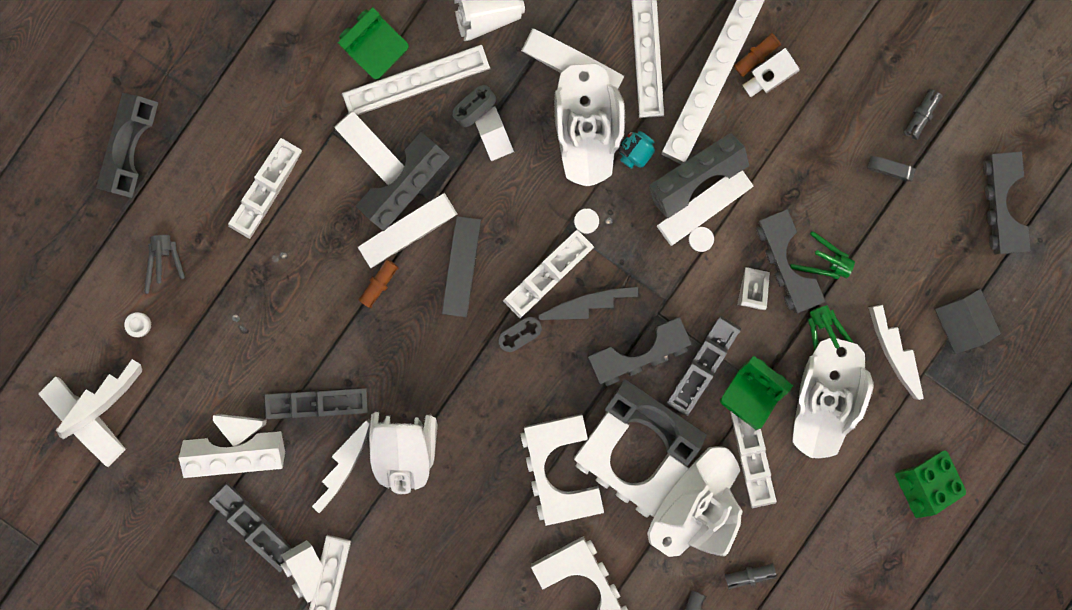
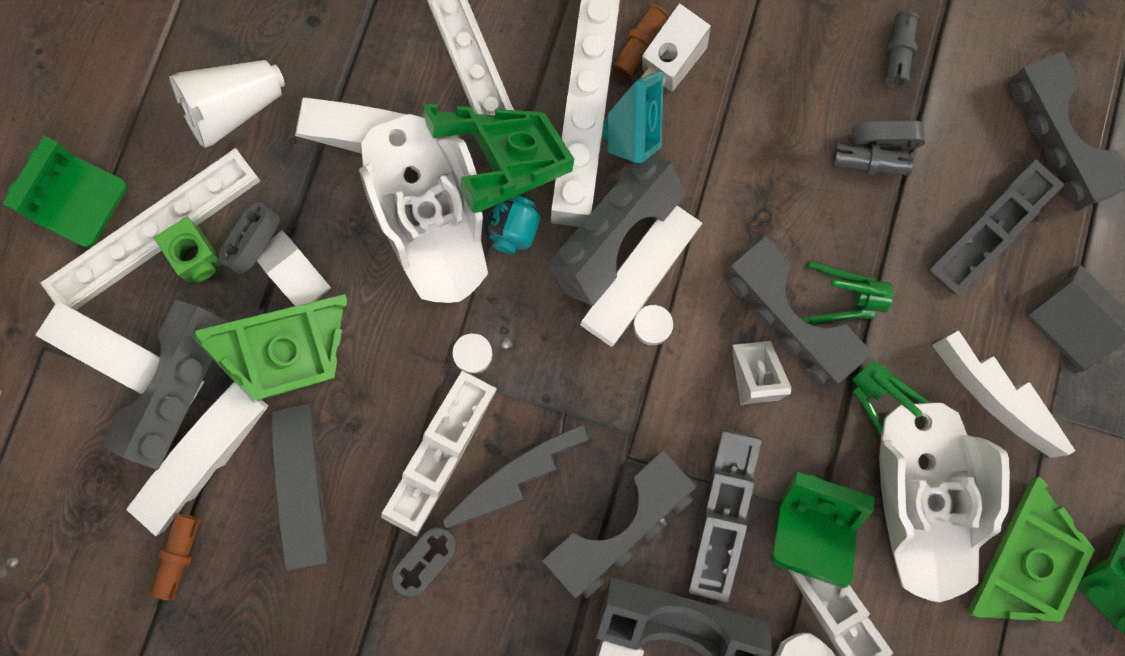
camera: 30 degrees left, 10 degrees down
(436, 92) = (177, 240): none -> bright green brick
(474, 182) = (278, 348): none -> bright green wing
(655, 106) = (516, 143): none -> green wing
(733, 113) = (636, 120): none -> teal slope
(875, 180) = (873, 159): none -> dark grey pin
(876, 454) = (1034, 562): none -> bright green wing
(936, 248) = (996, 227): none -> dark grey slope

